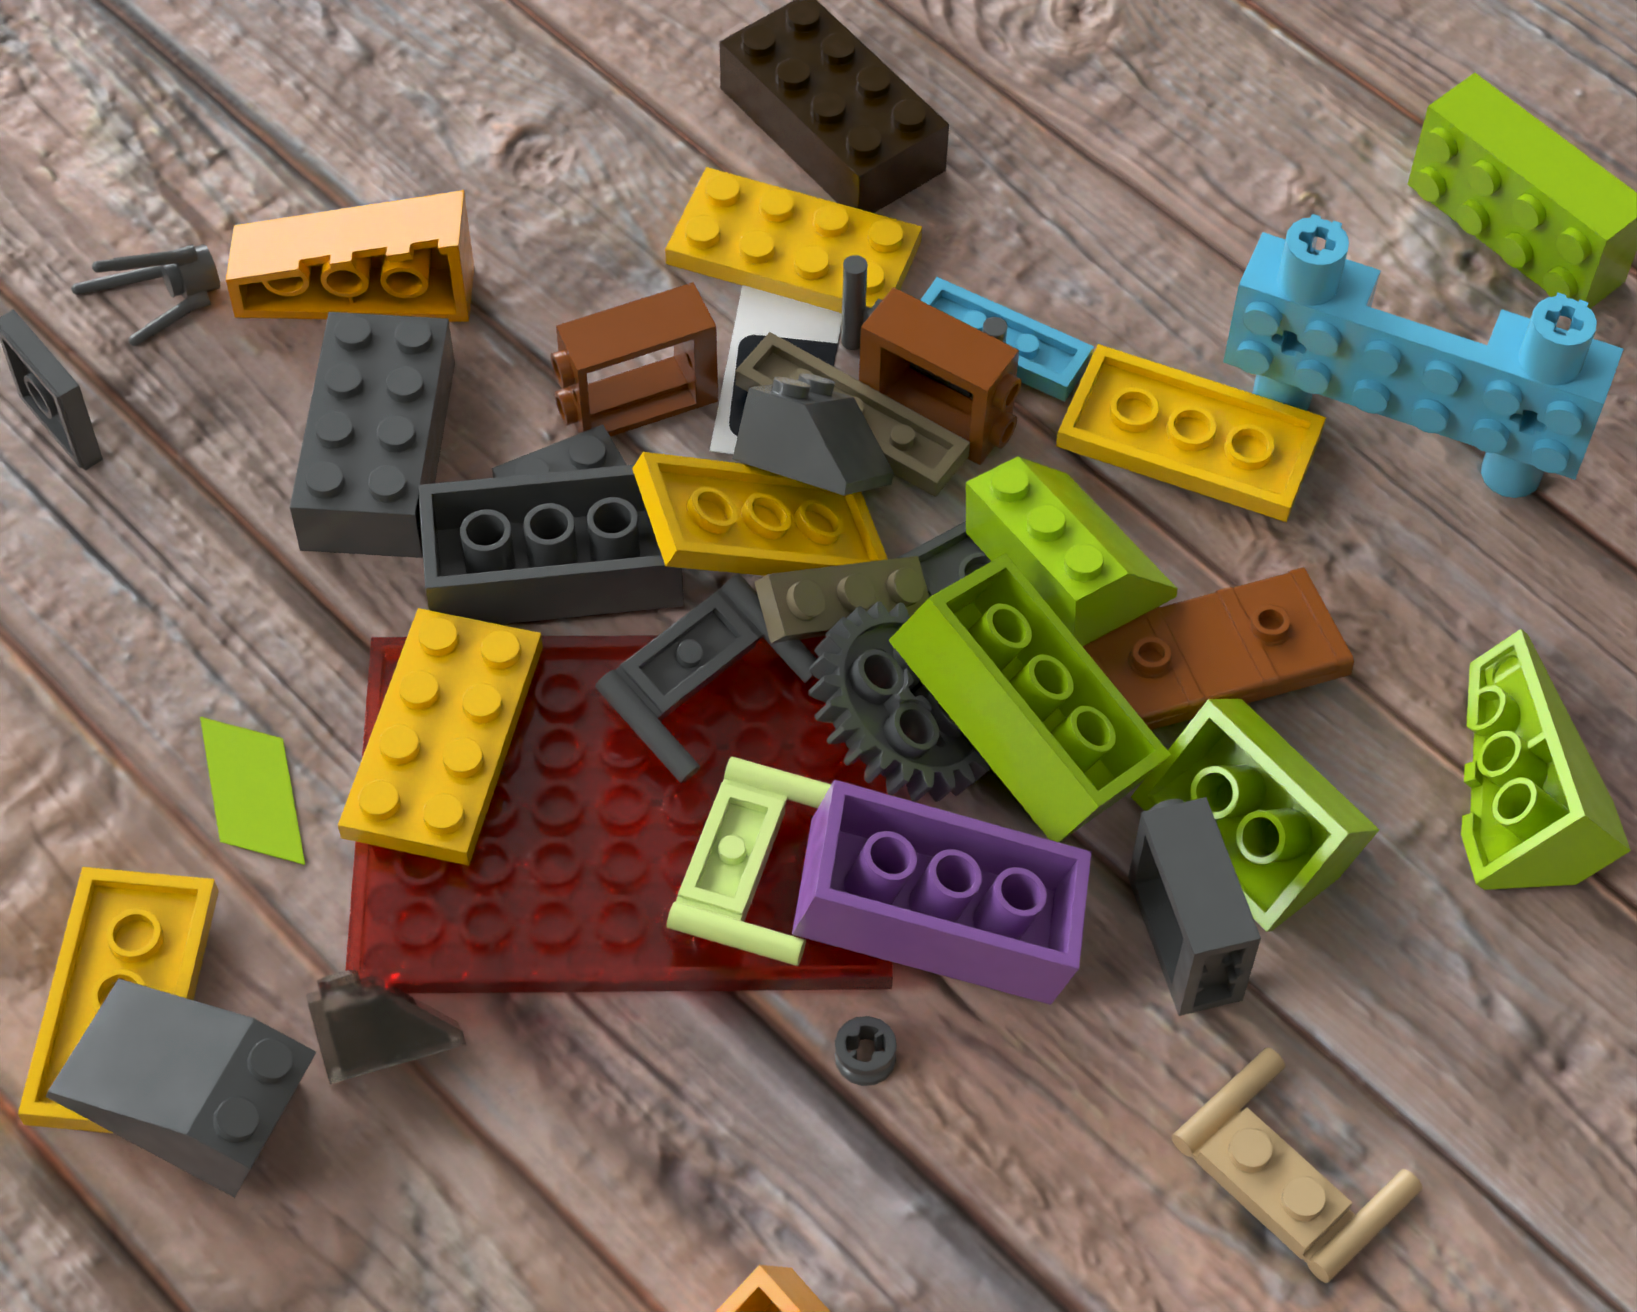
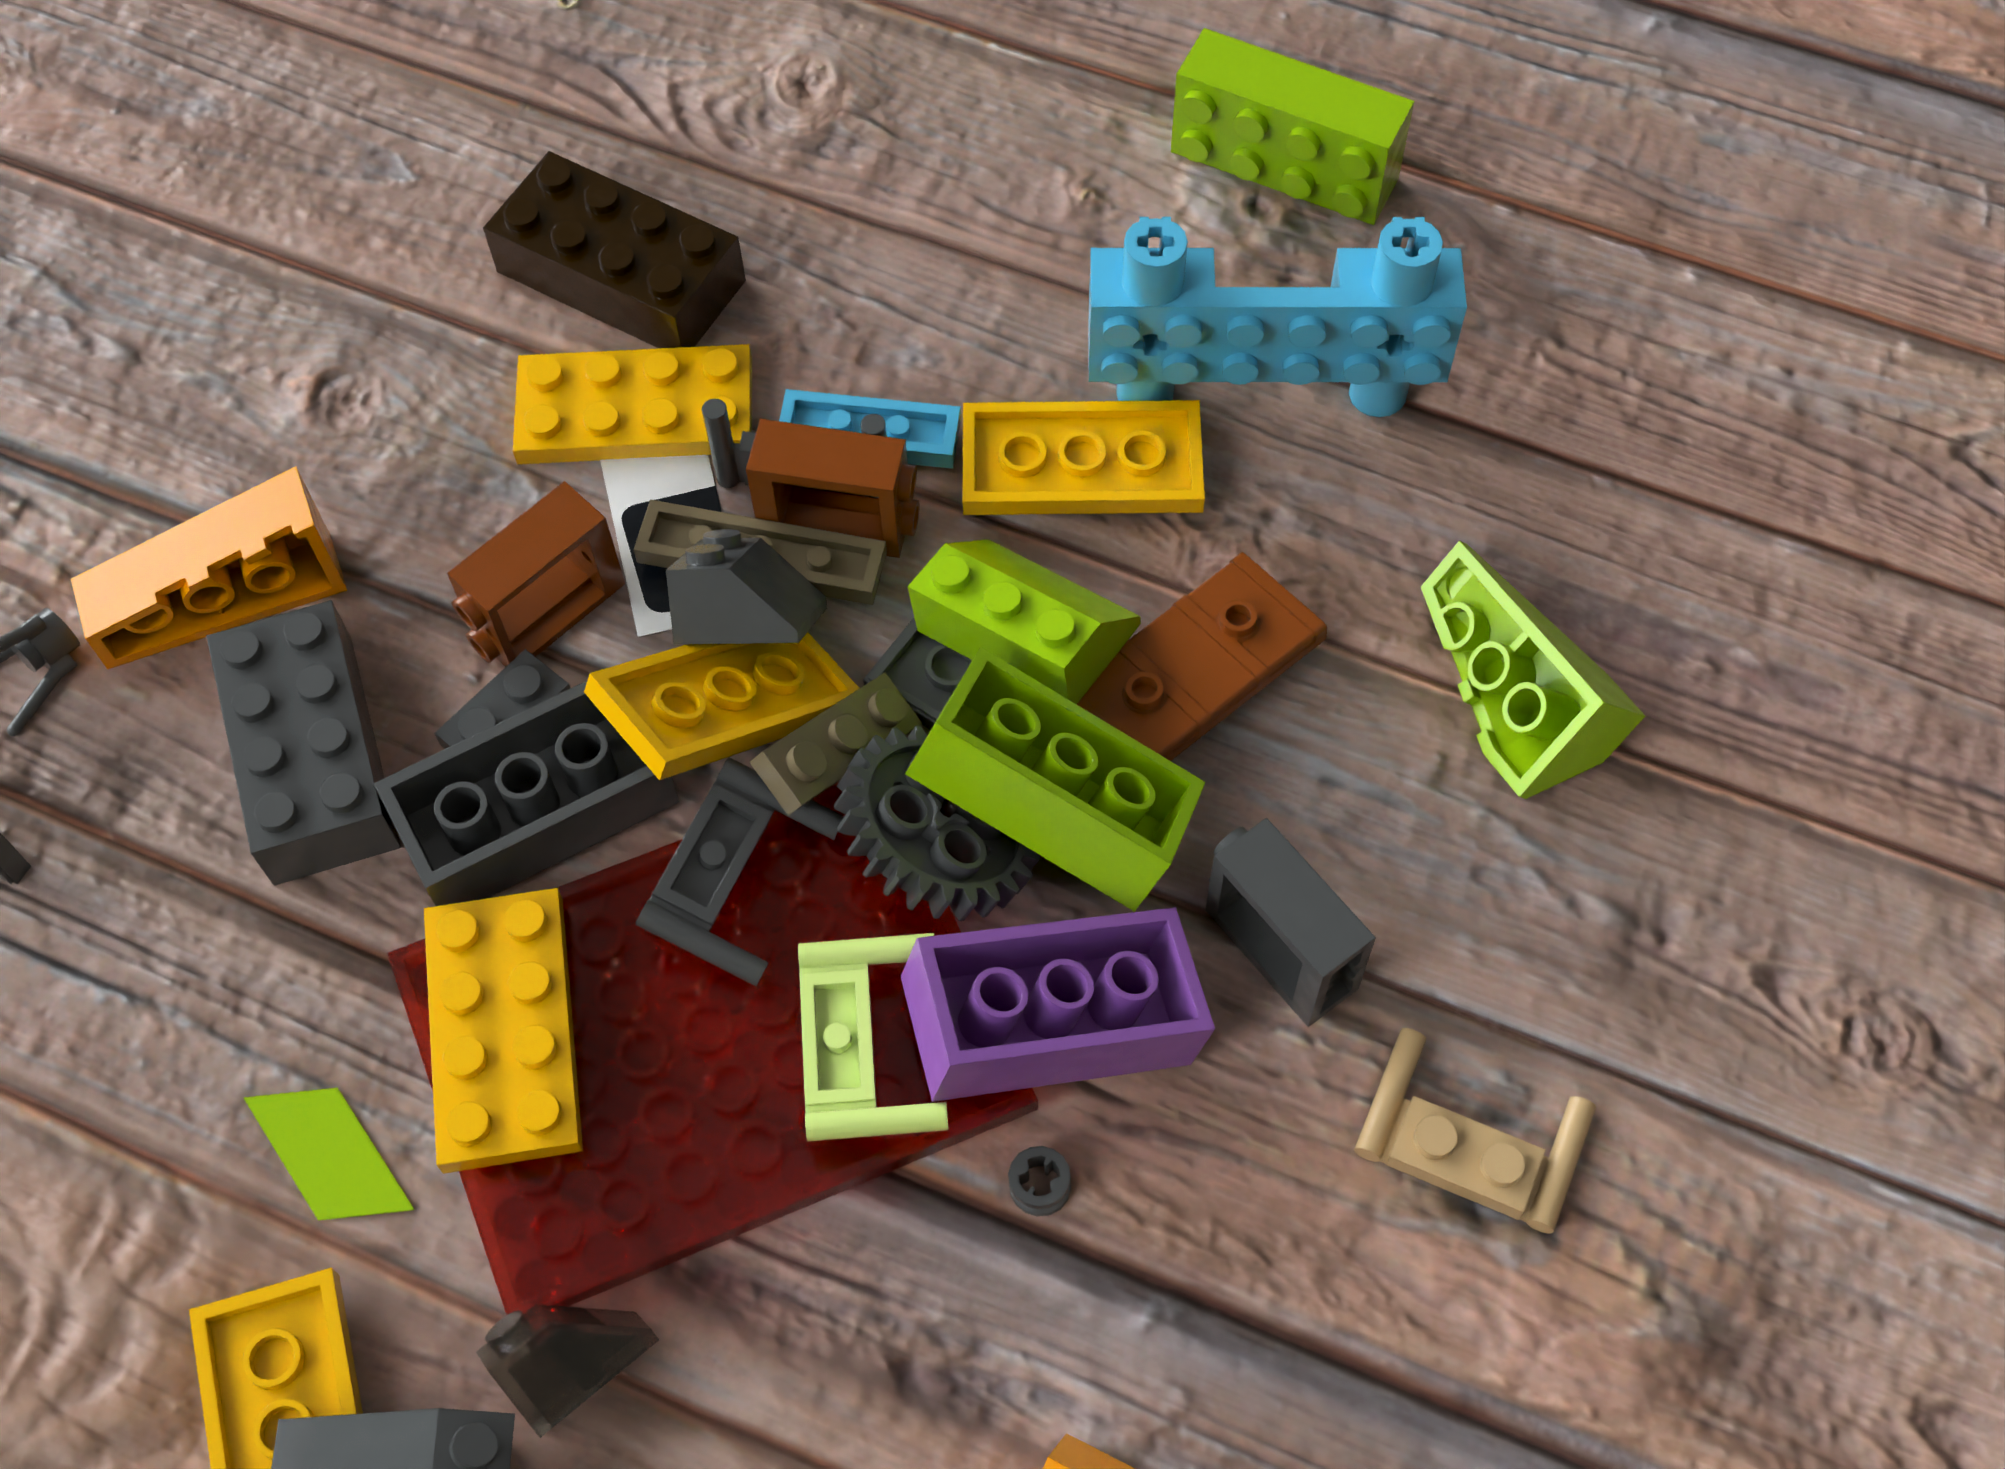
camera: 20 degrees left, 5 degrees up
(1274, 810) = (1315, 792): lime slope -> none

